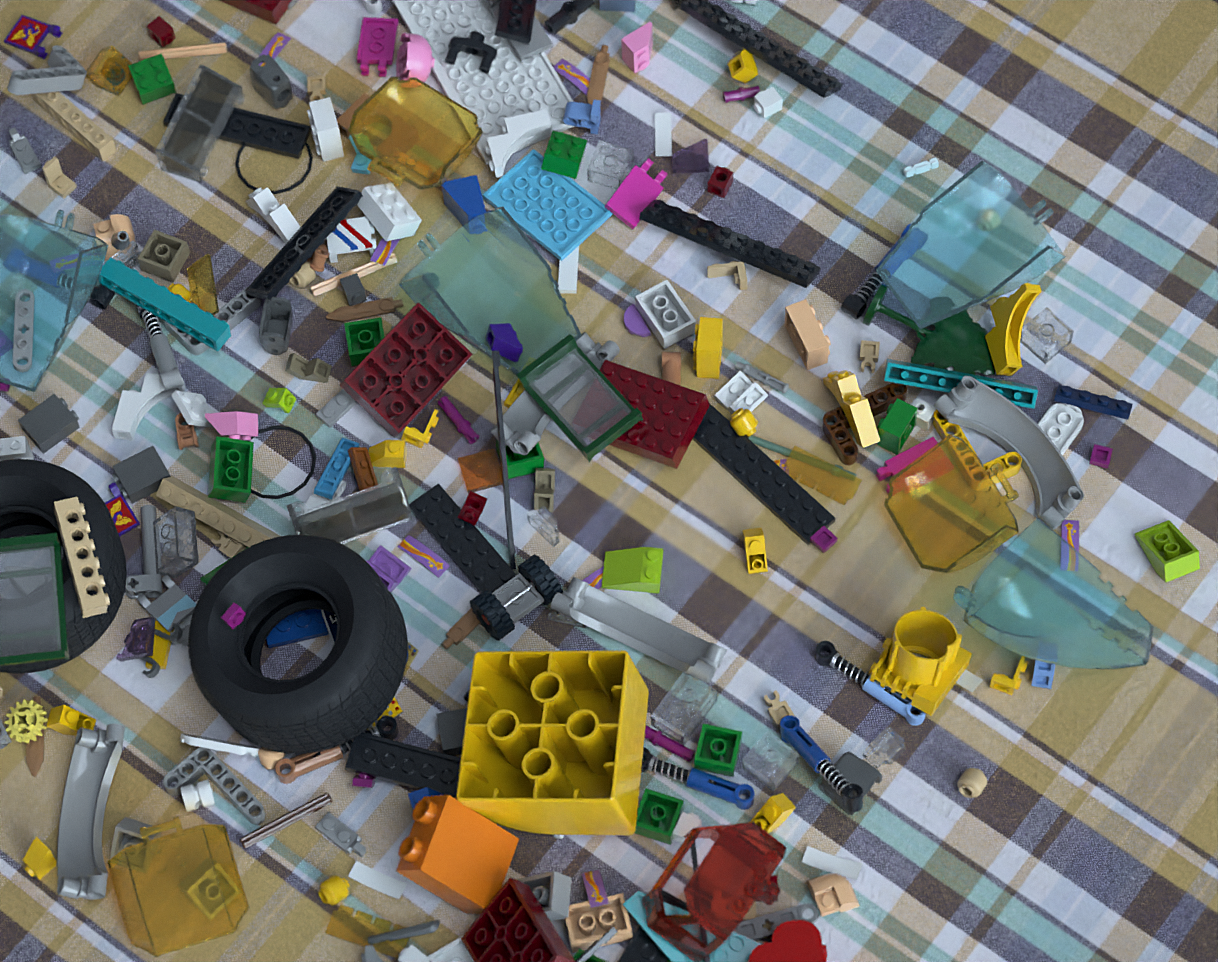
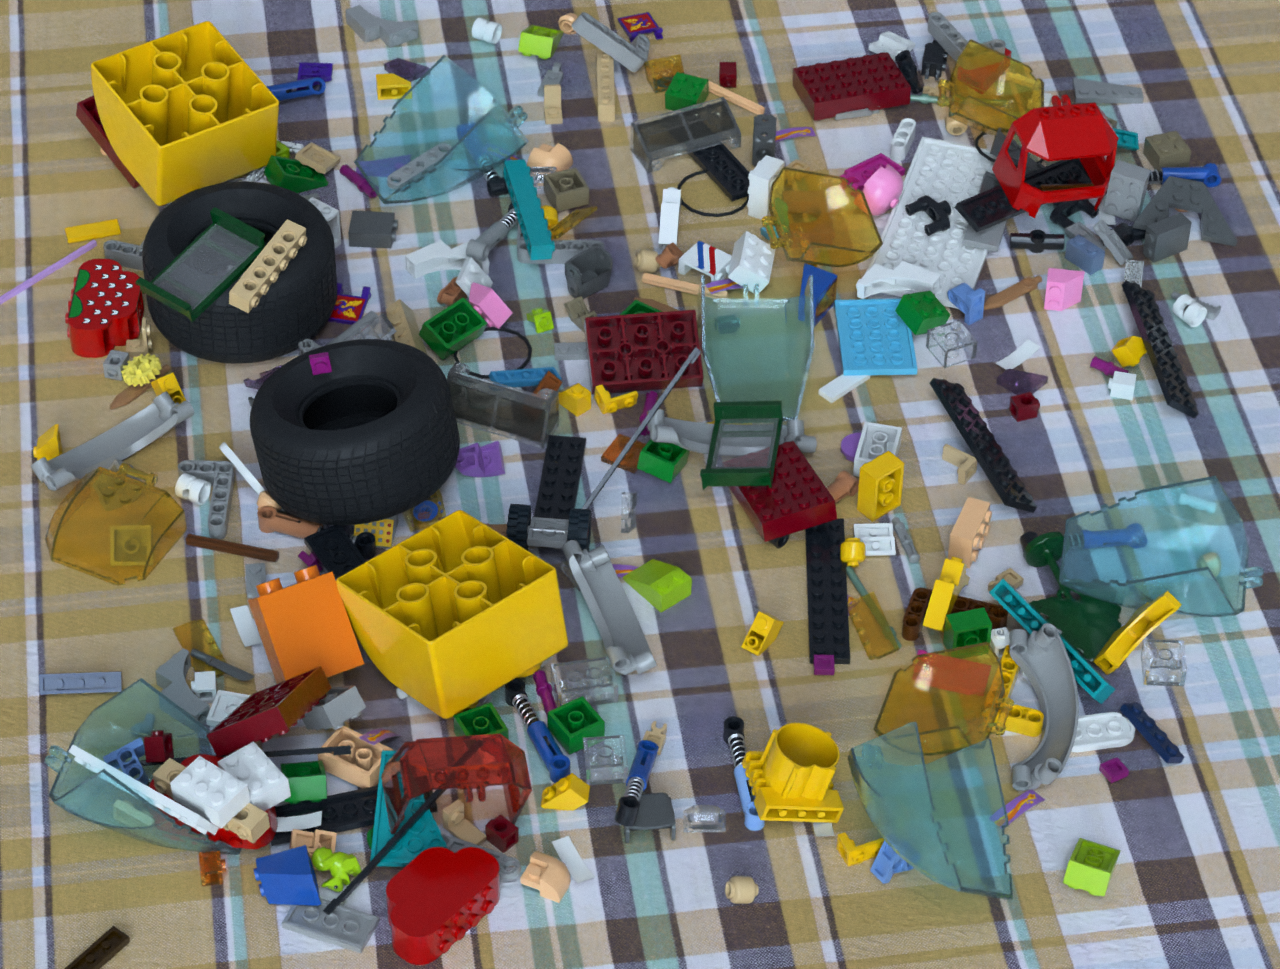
camera: 40 degrees right, 20 degrees down
(119, 243) = (546, 158): dark grey cone -> none
(140, 474) = (389, 290): dark grey brick -> none
(304, 243) = (673, 236): black plate -> none
(333, 890) = (208, 606): yellow head -> none
(353, 289) = (671, 292): dark grey brick -> none
(424, 555) = (523, 473): medium lavender sticker -> none
(472, 508) = (588, 464): dark red brick -> none
(504, 339) = (736, 384): dark purple slope -> none
(544, 488) = (660, 492): dark tan slope -> none
(573, 74) = (994, 280): medium lavender sticker -> none
(635, 194) = (953, 367): dark pink tile -> none

